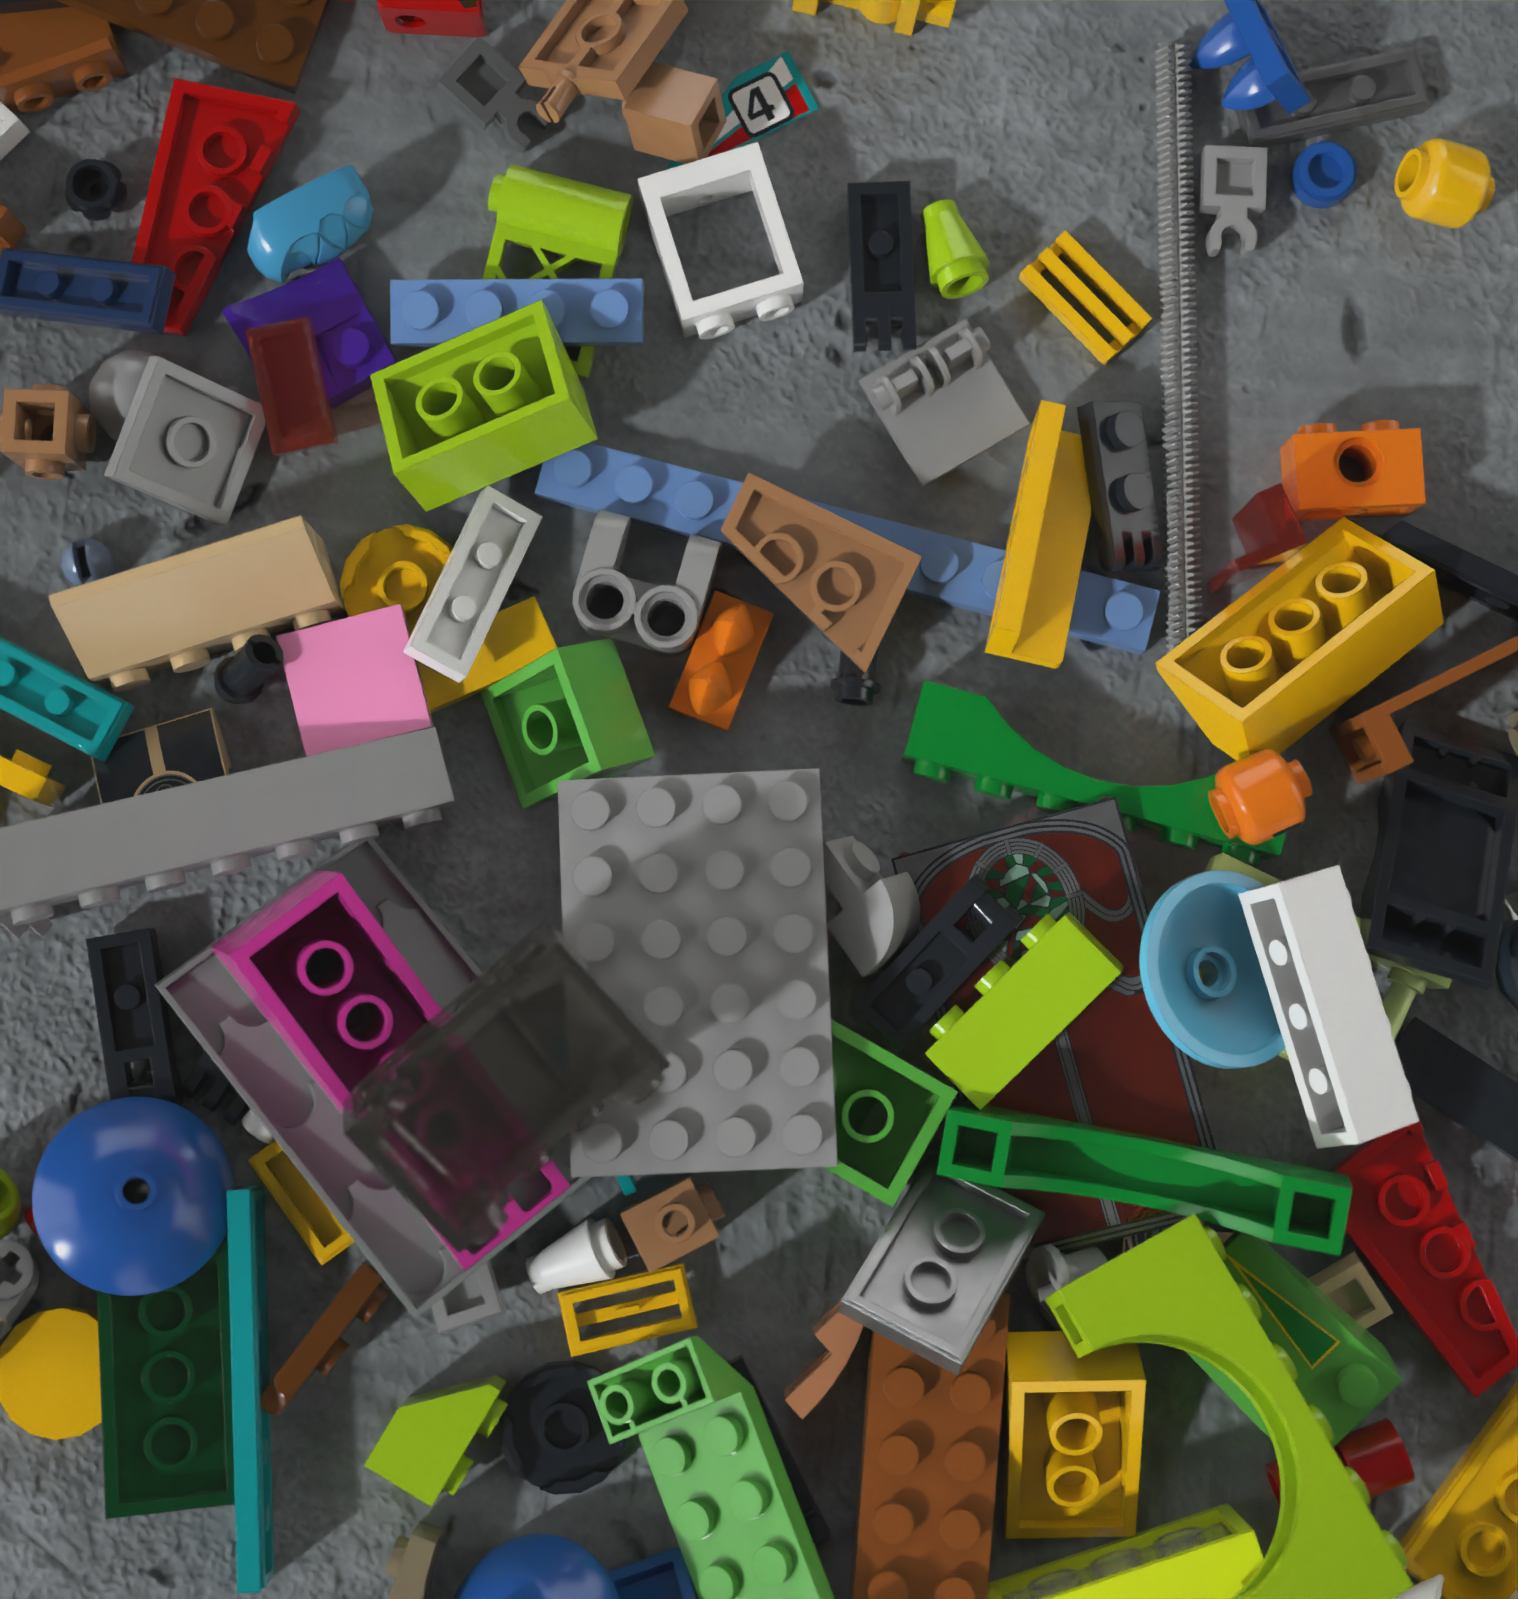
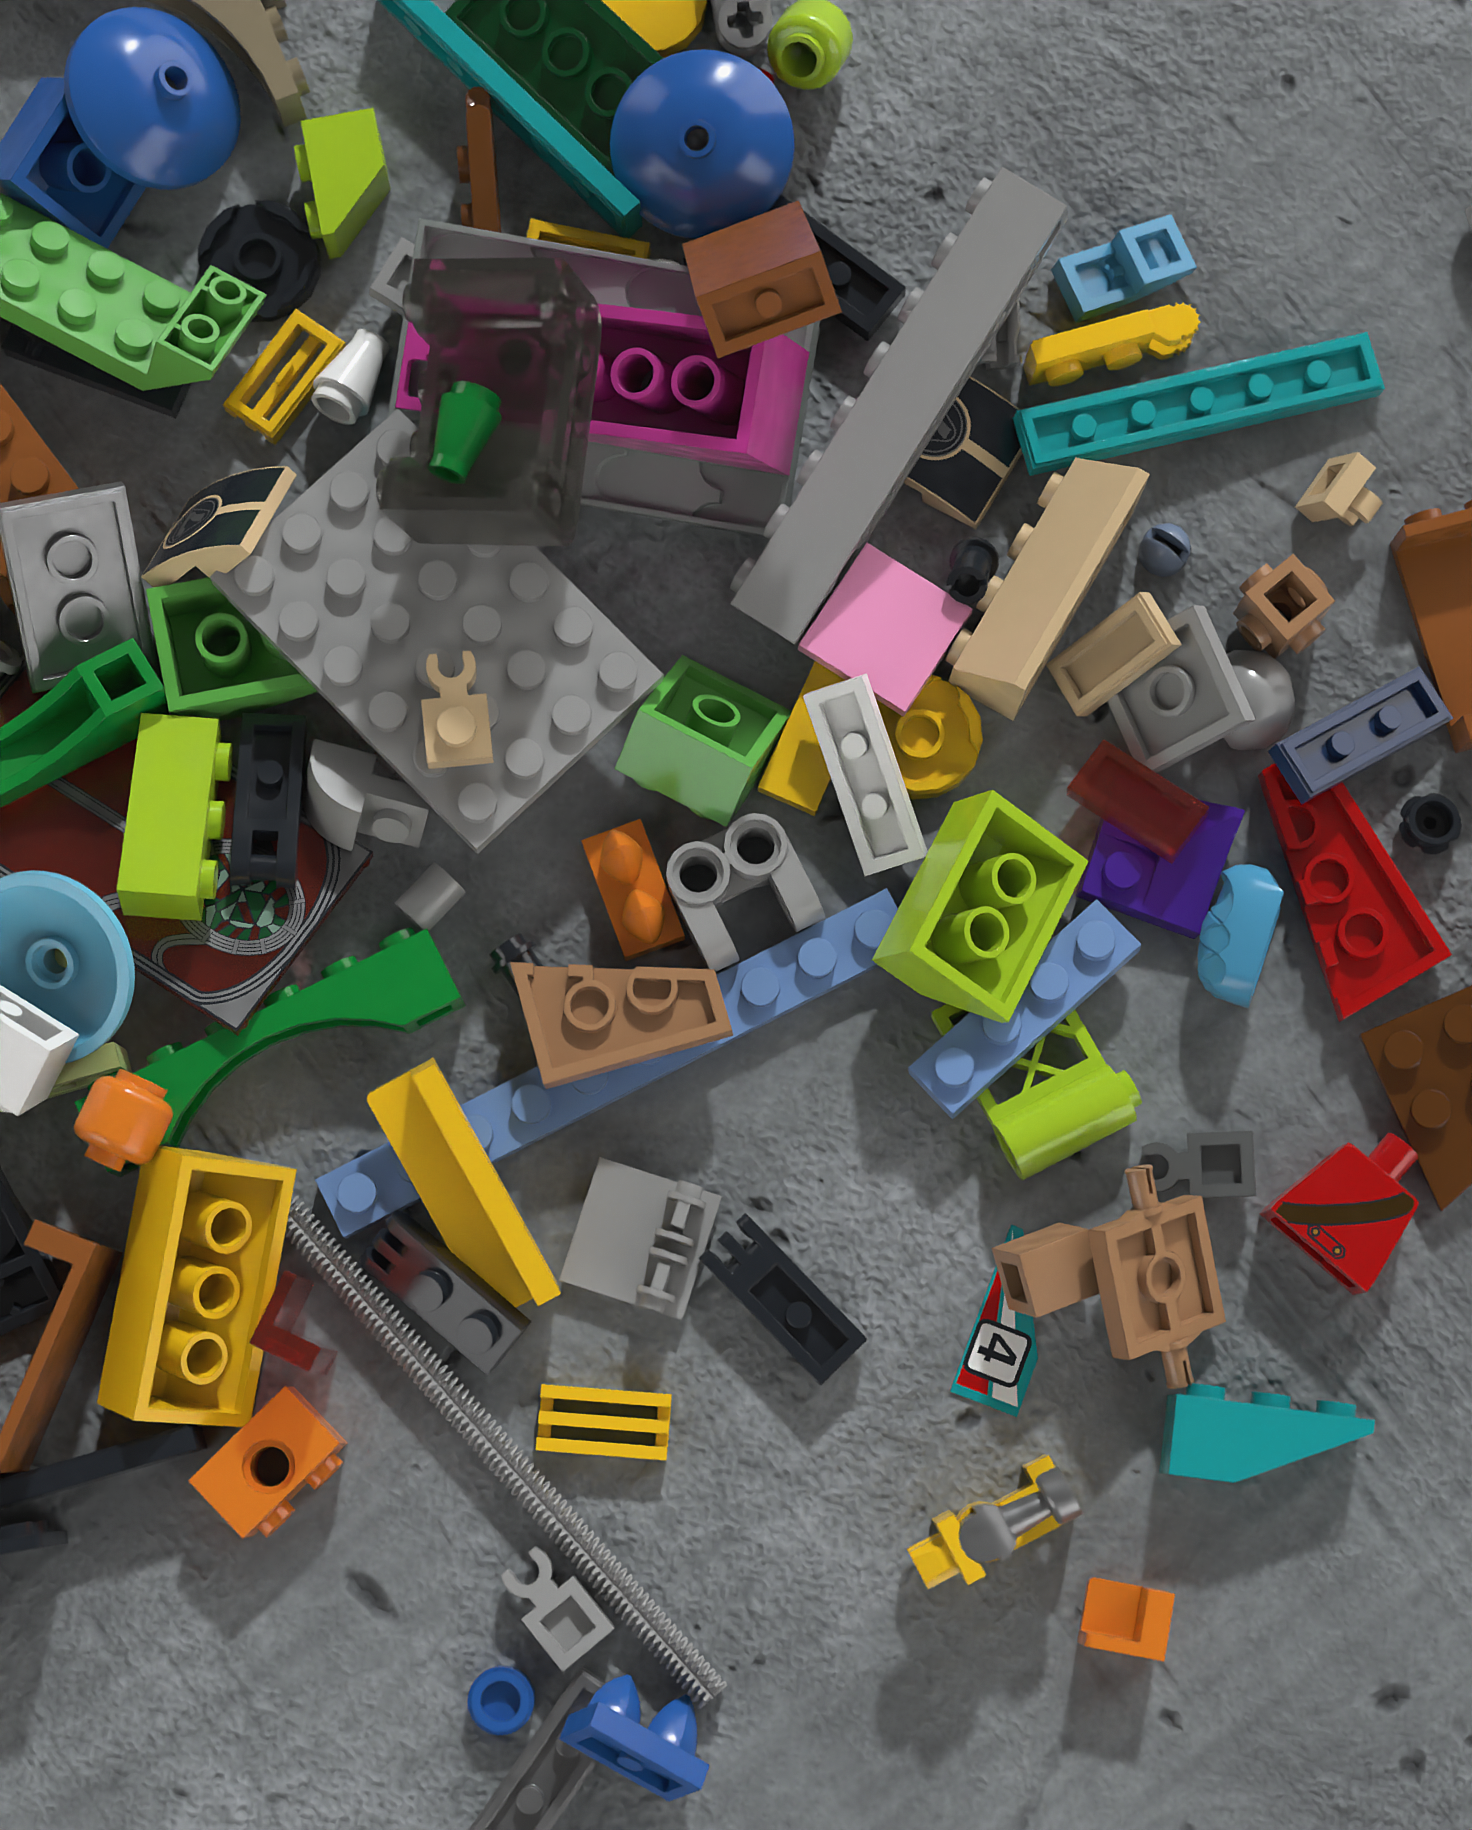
camera: 140 degrees right, 5 degrees down
(195, 1012) = (760, 279): none -> dark orange panel
(200, 504) = (1113, 654): none -> tan tile
(541, 1092) = (463, 429): none -> green cone
(673, 1221) = (307, 445): medium nougat brick -> none
(702, 184) = (979, 1240): white window -> none
(752, 871) = (456, 723): none -> tan plate
(790, 1212) = (220, 525): none -> slope
(839, 1337) = (103, 447): nougat slope -> none
(878, 787) = (430, 897): none -> light grey hinge
(953, 253) = (738, 1362): lime cone -> none
(1444, 183) = (394, 1774): yellow head -> none

